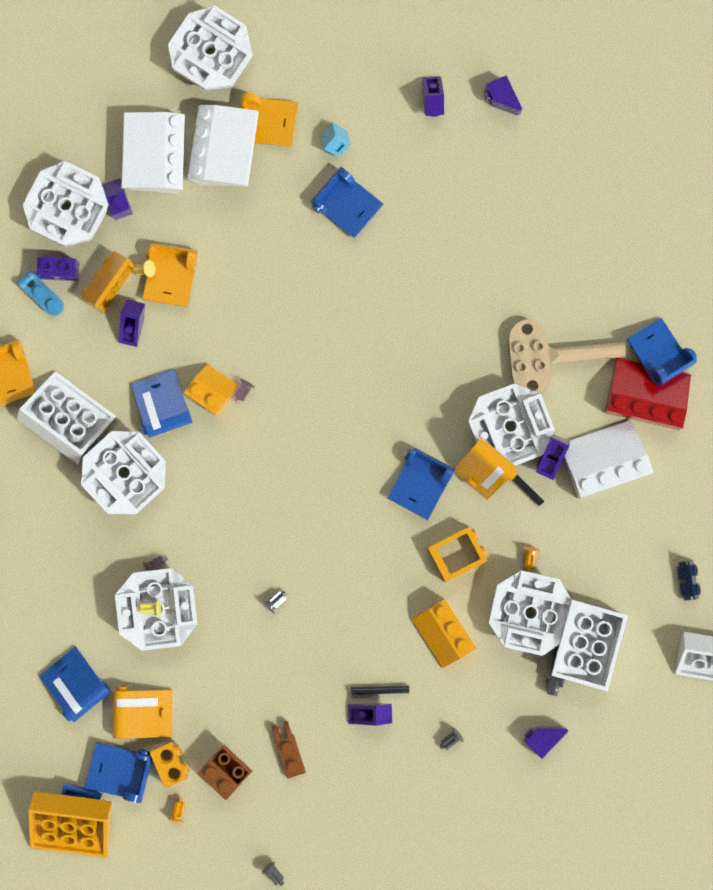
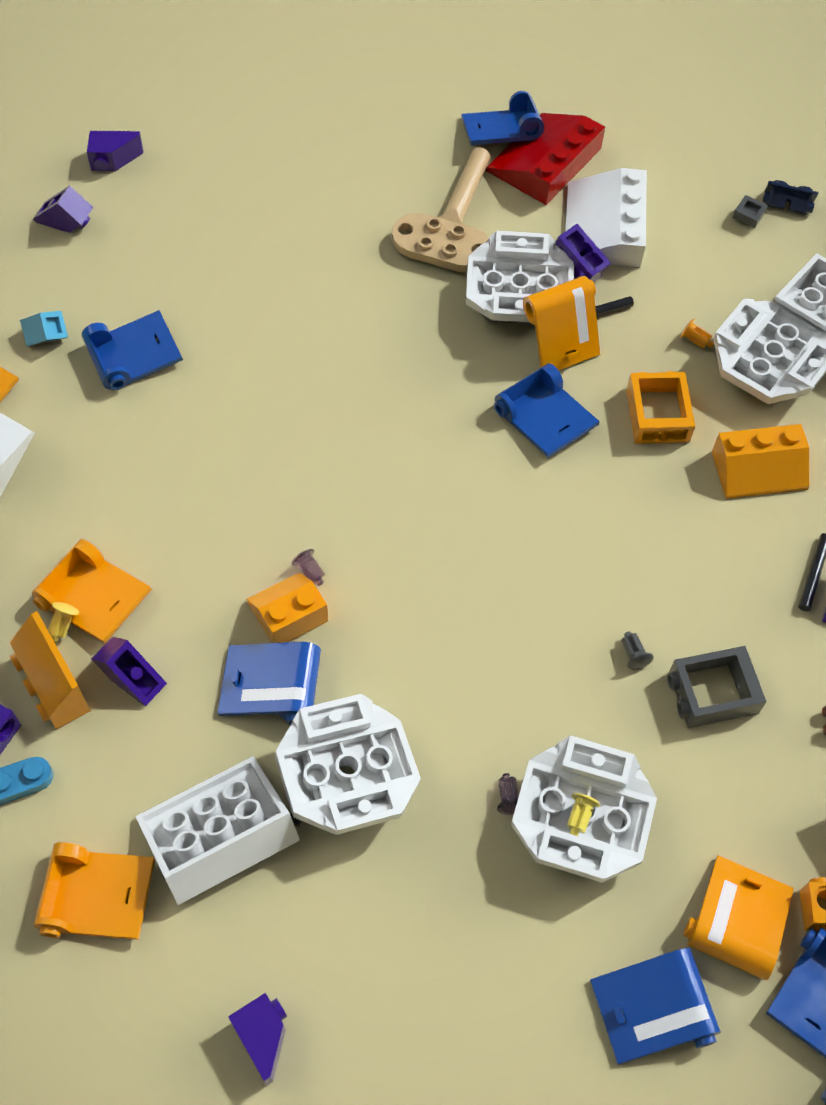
camera: 65 degrees left, 25 degrees down
(282, 671) = (744, 678): none -> dark grey window
(661, 557) = (750, 211): none -> dark grey plate

